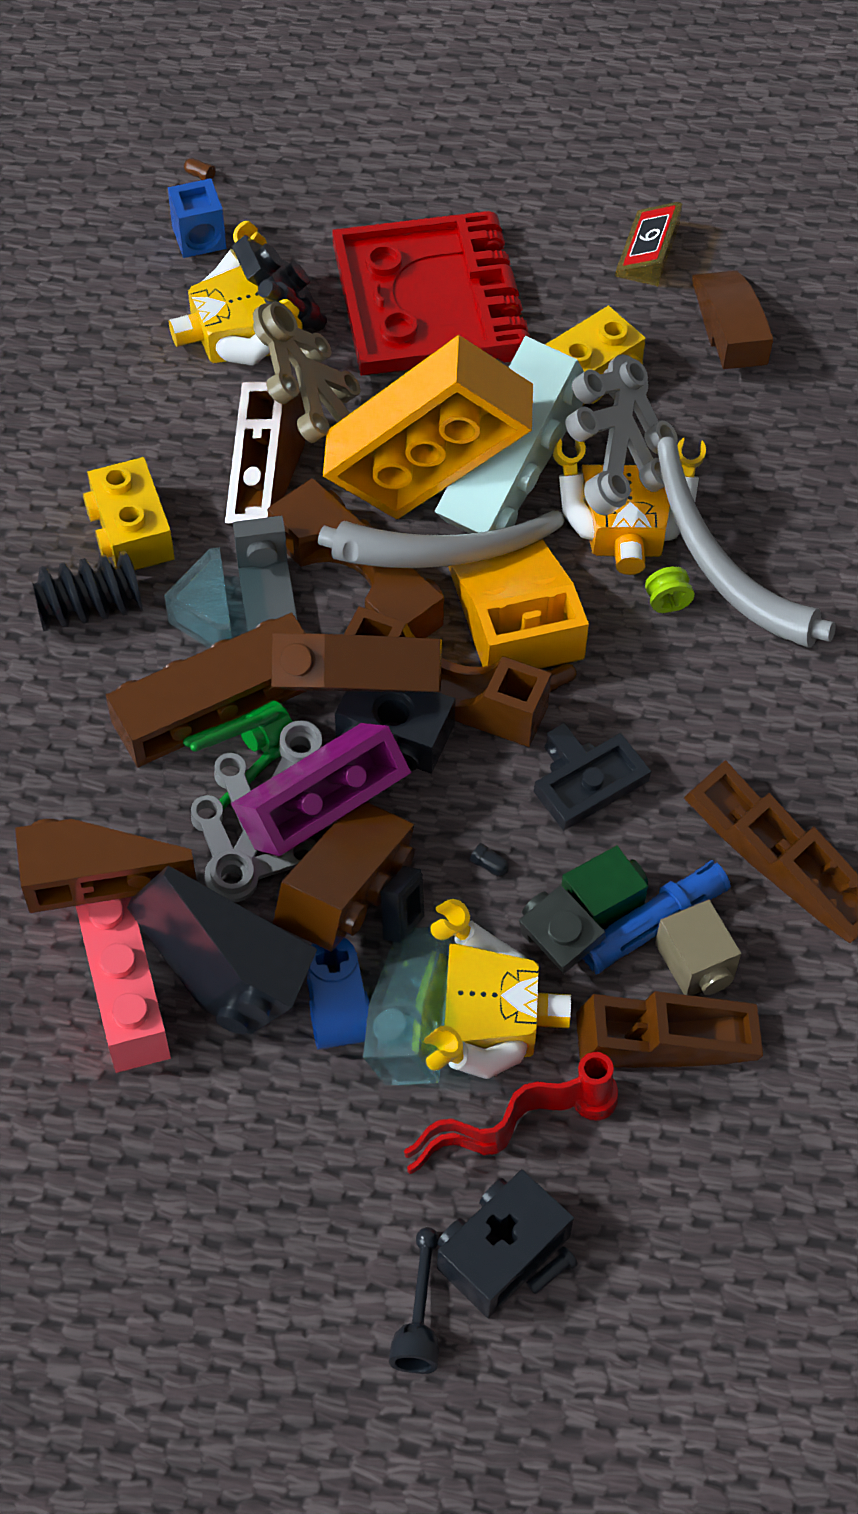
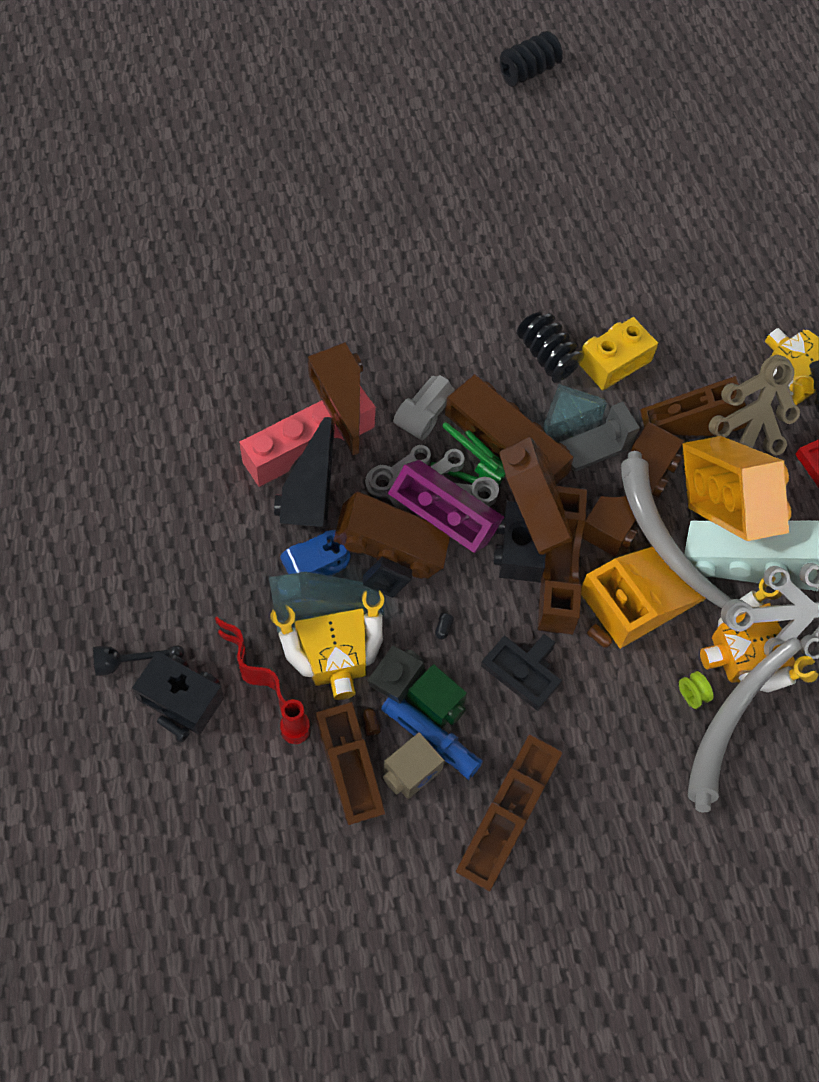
camera: 70 degrees right, 5 degrees up
(131, 793) = (421, 413): none -> light grey piece
(611, 989) = (371, 722): none -> reddish brown piece

